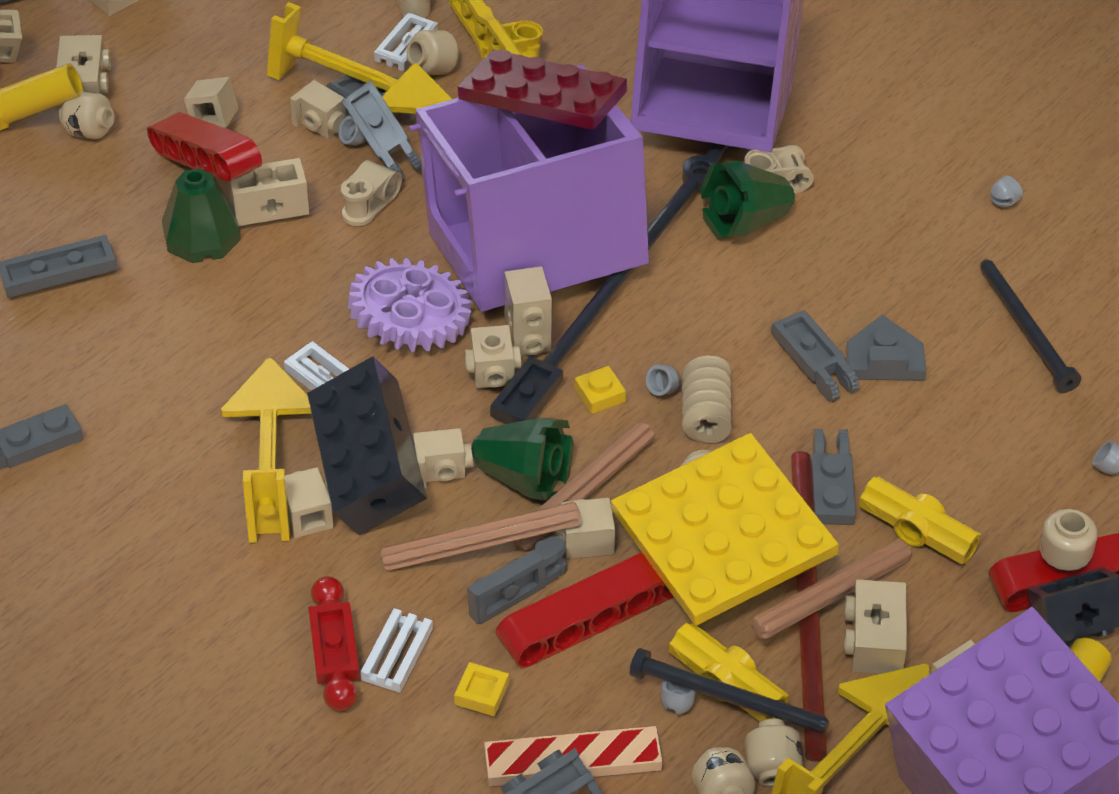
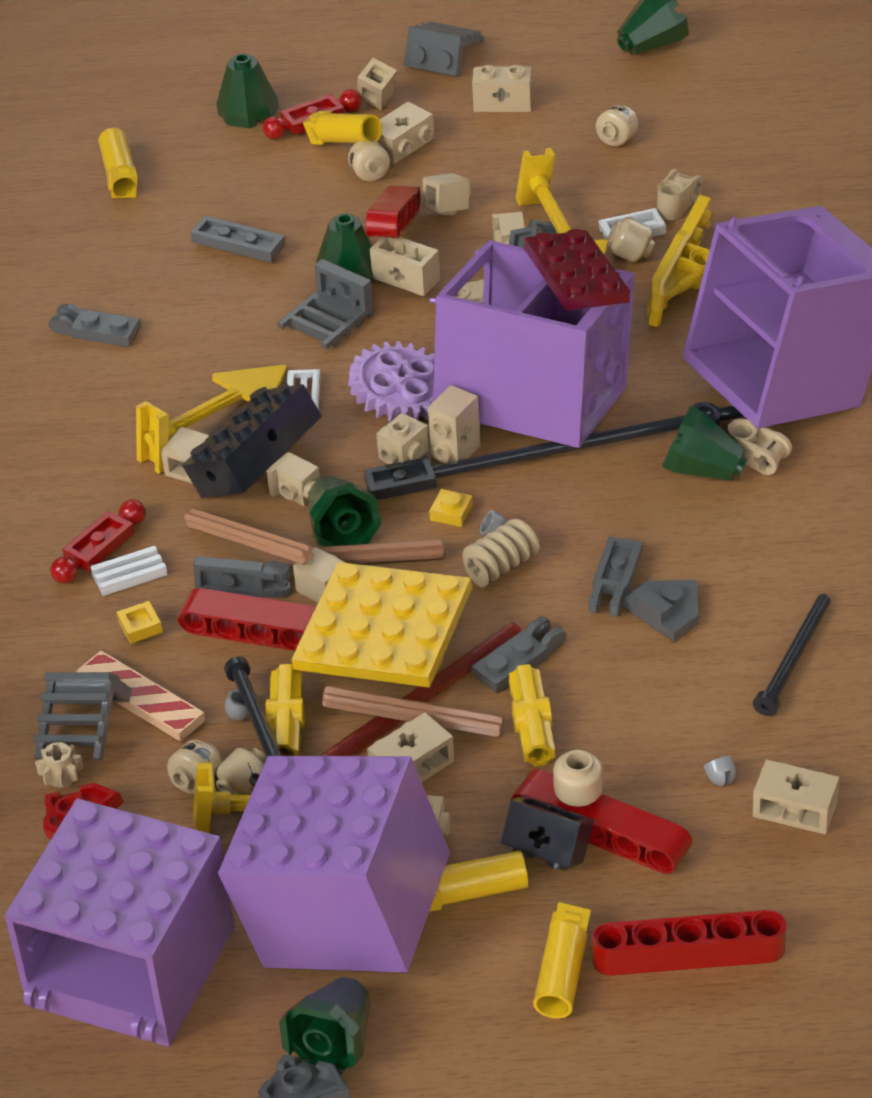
camera: 50 degrees right, 5 degrees down
(243, 258) = (337, 294): none -> dark grey plate

